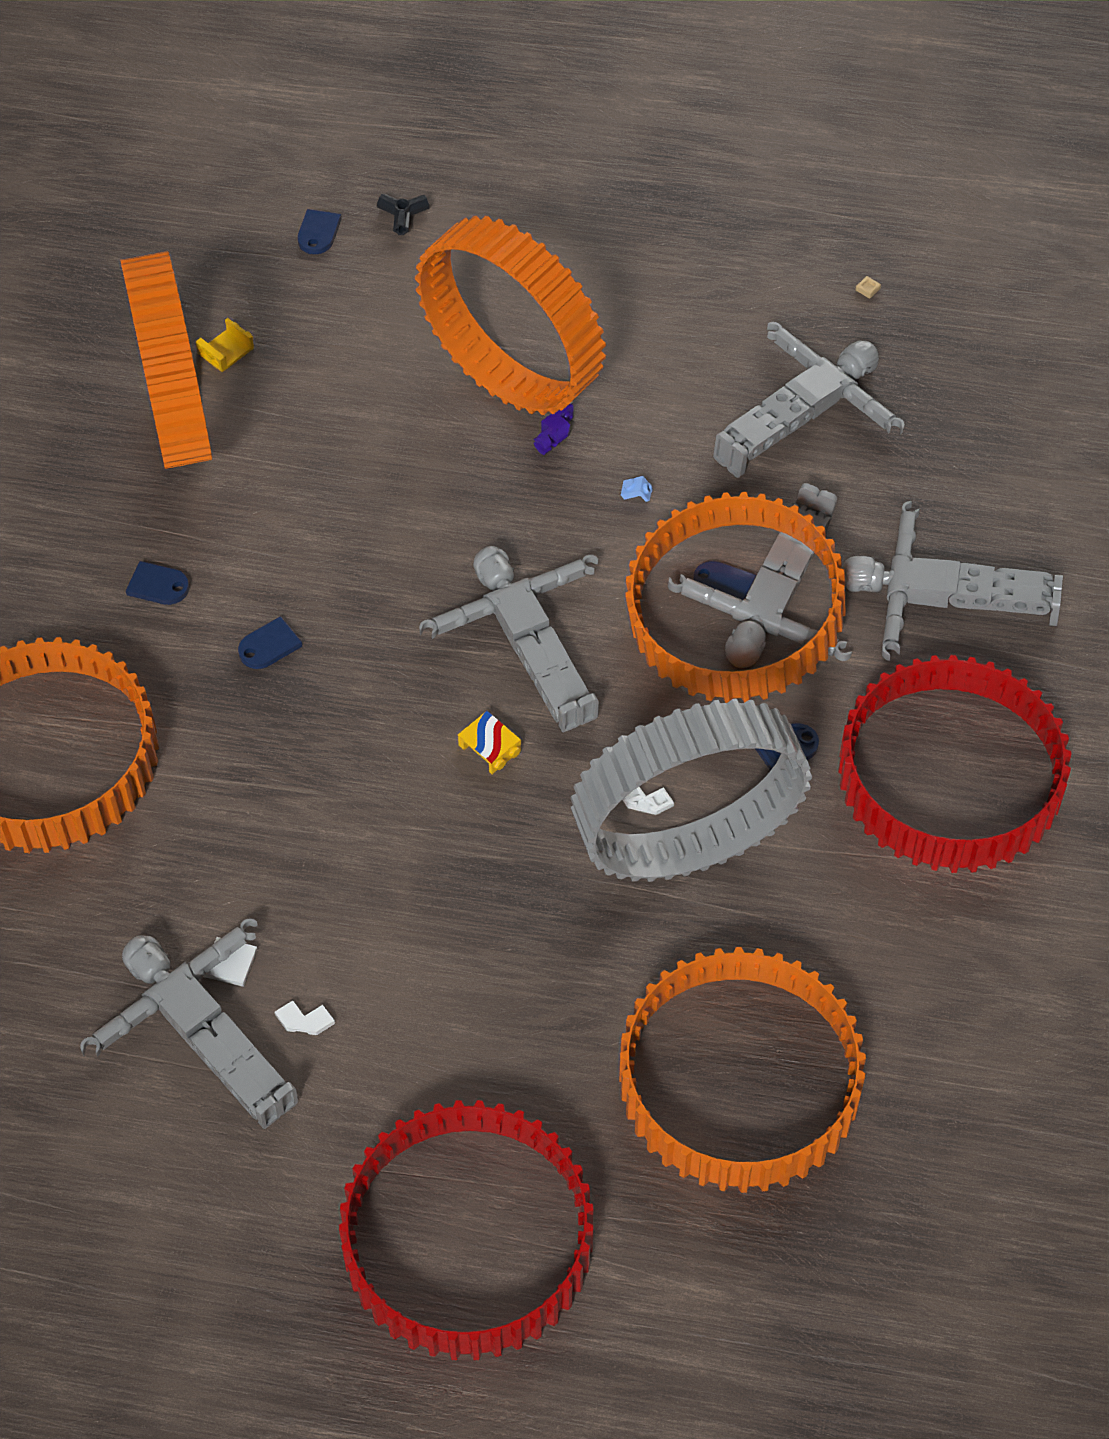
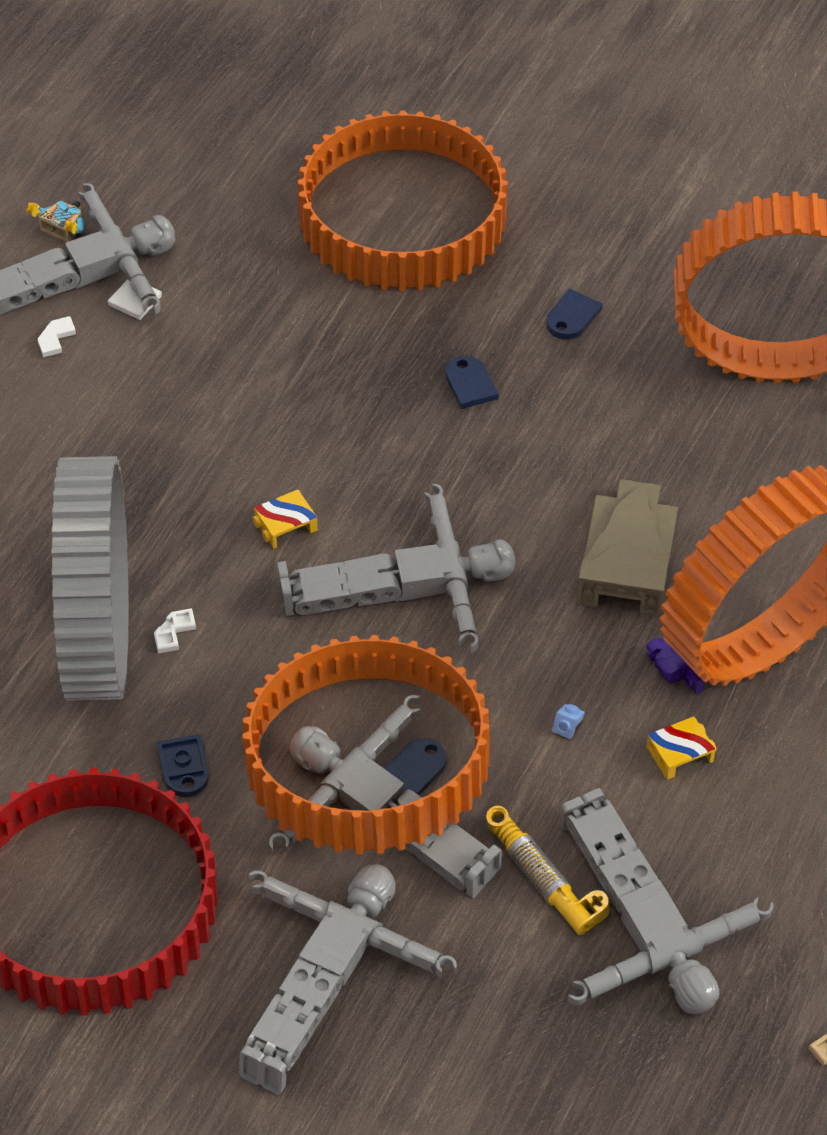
camera: 105 degrees right, 5 degrees down
(134, 1062) = (60, 219): none -> torso
(441, 481) = (628, 547): none -> dark tan panel
(639, 408) = (680, 745): none -> panel
(804, 462) = (554, 889): none -> yellow piece

